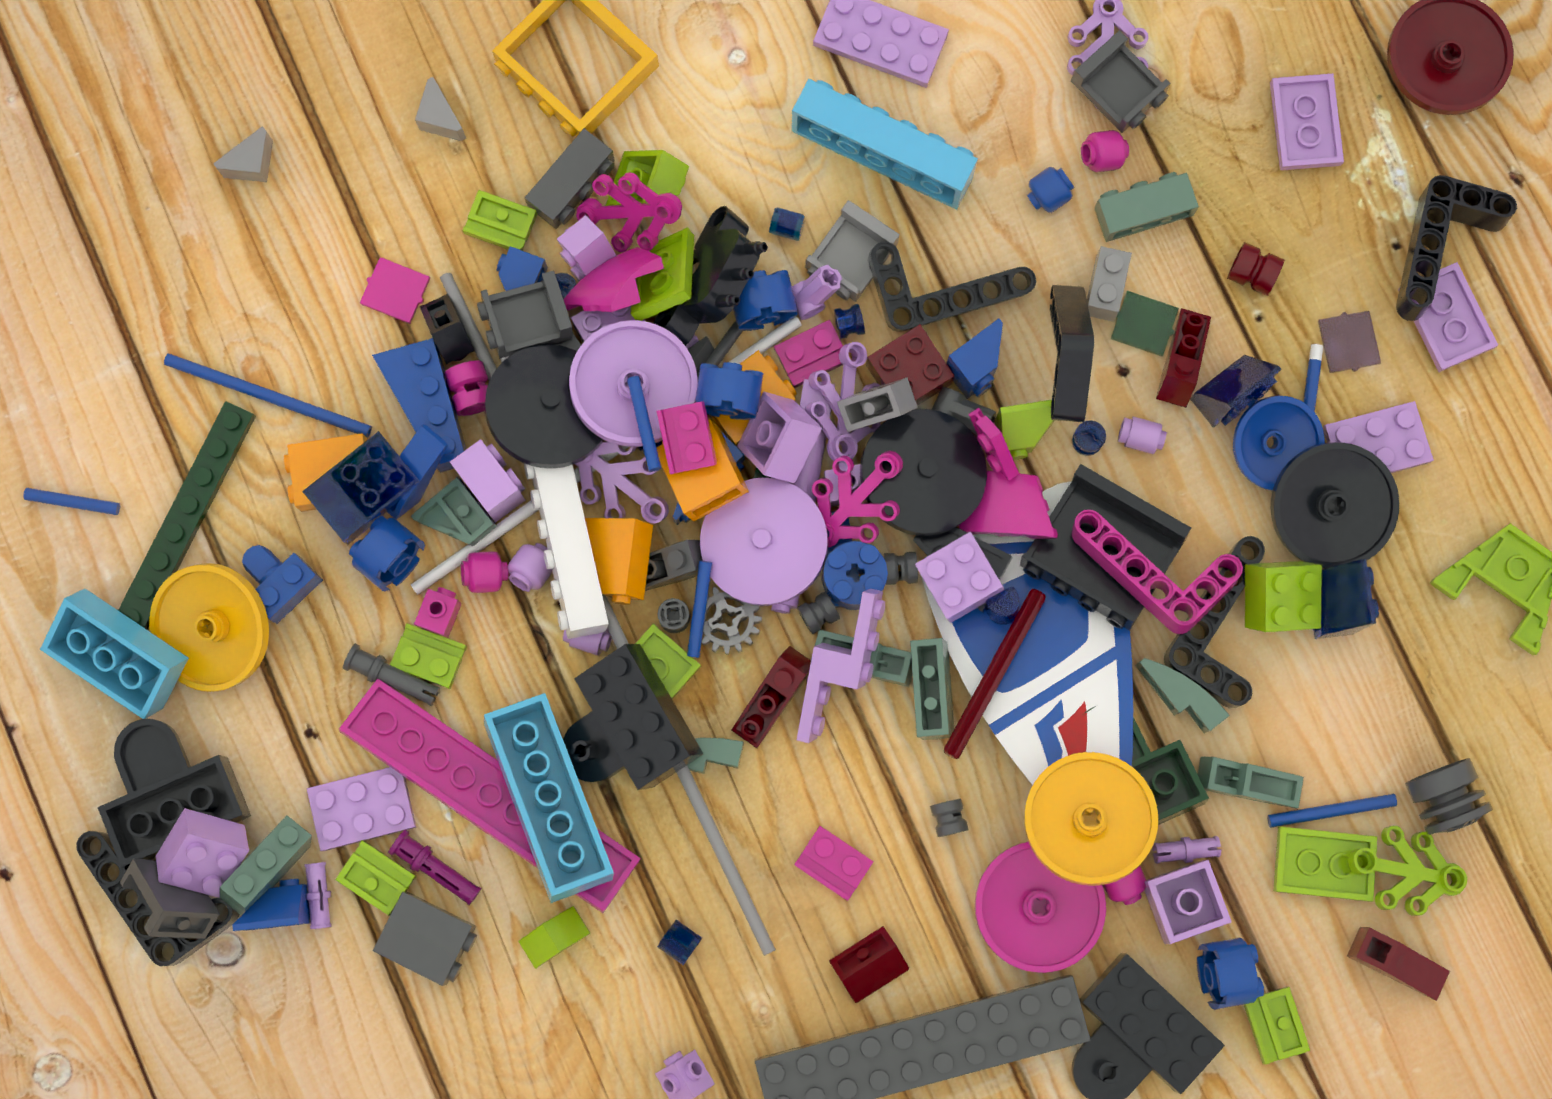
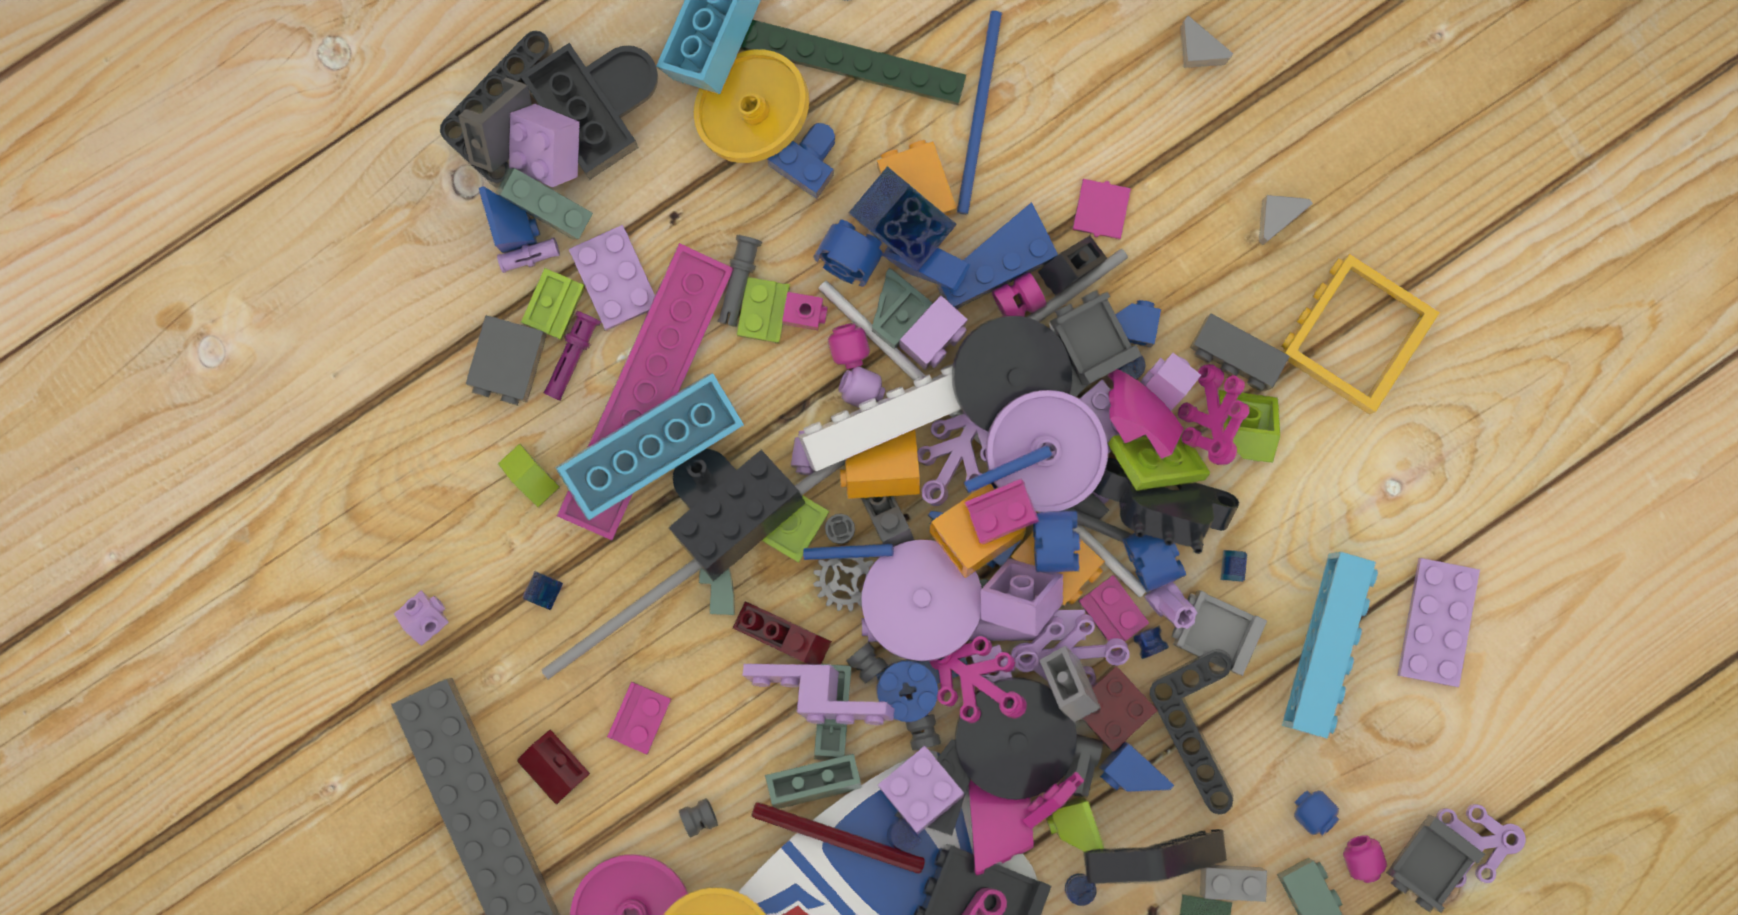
camera: 75 degrees right, 5 degrees up
(499, 221) = (1185, 294): lime plate -> none

